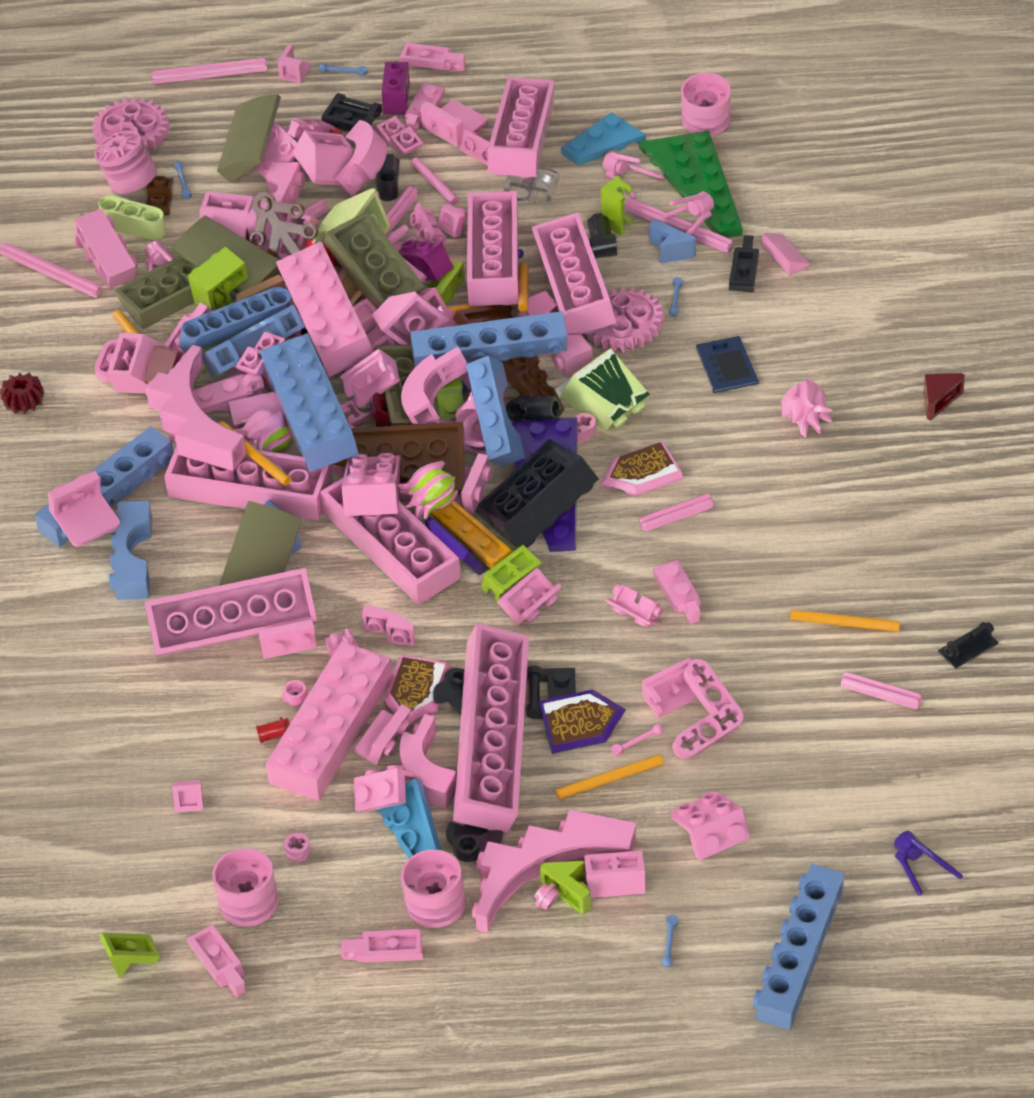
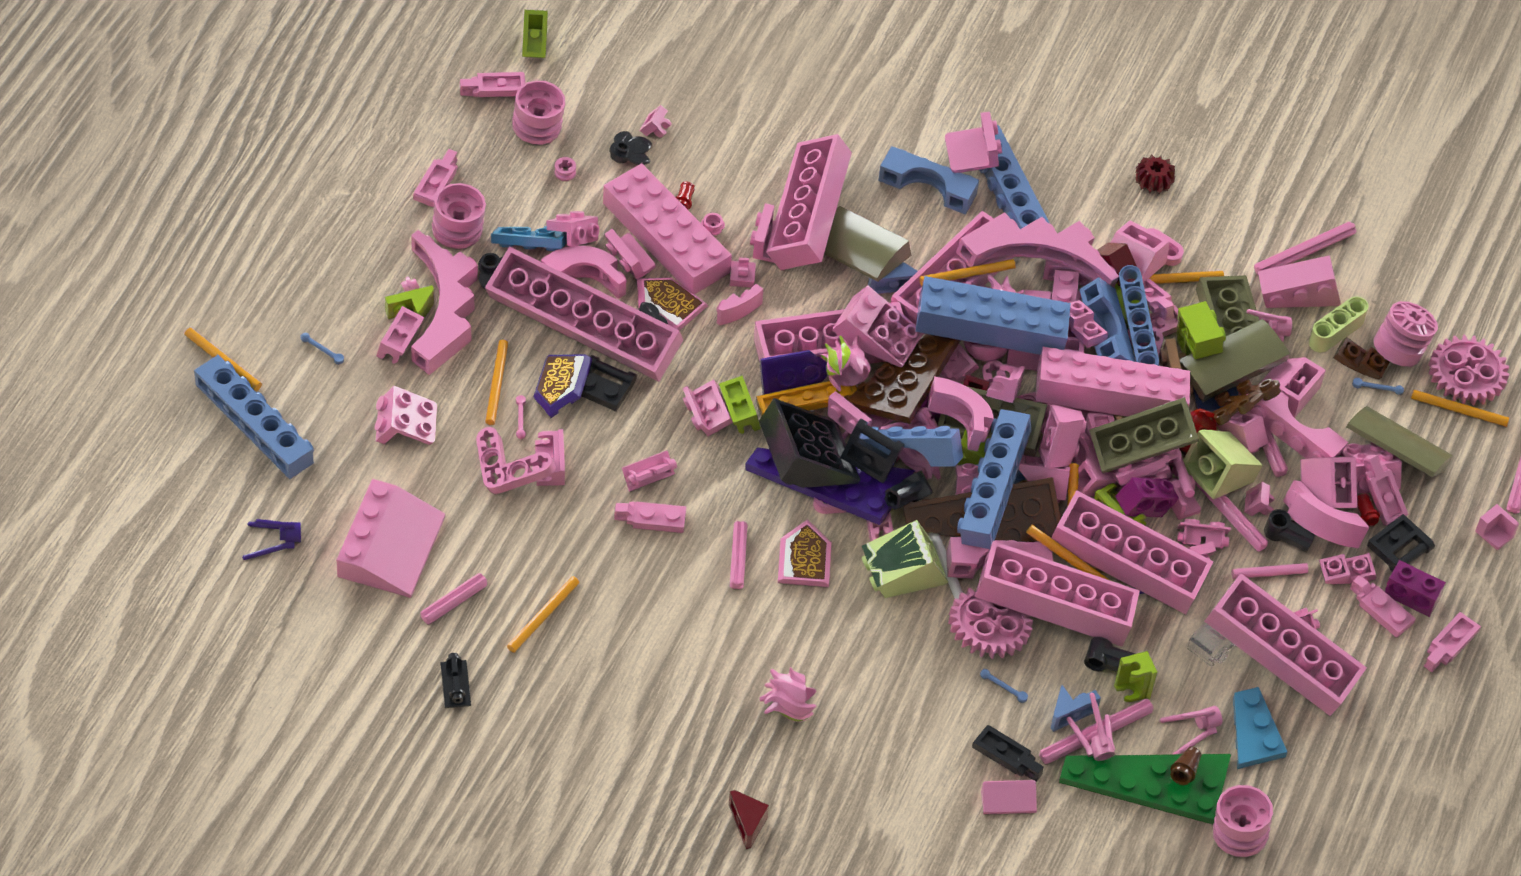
camera: 110 degrees right, 5 degrees up
(174, 125) = (1460, 408): none -> light orange bar
(234, 805) = (630, 148): none -> black plate
(362, 70) = (1467, 583): medium blue hinge -> none
(451, 120) = (1342, 613): bright pink bracket -> none
(519, 431) = (866, 456): none -> black plate
(680, 149) = (1185, 767): none -> reddish brown cone
(727, 364) = (893, 682): dark blue container -> none
(744, 1019) = (213, 351): none -> light orange bar
(859, 769) = (389, 539): none -> bright pink slope

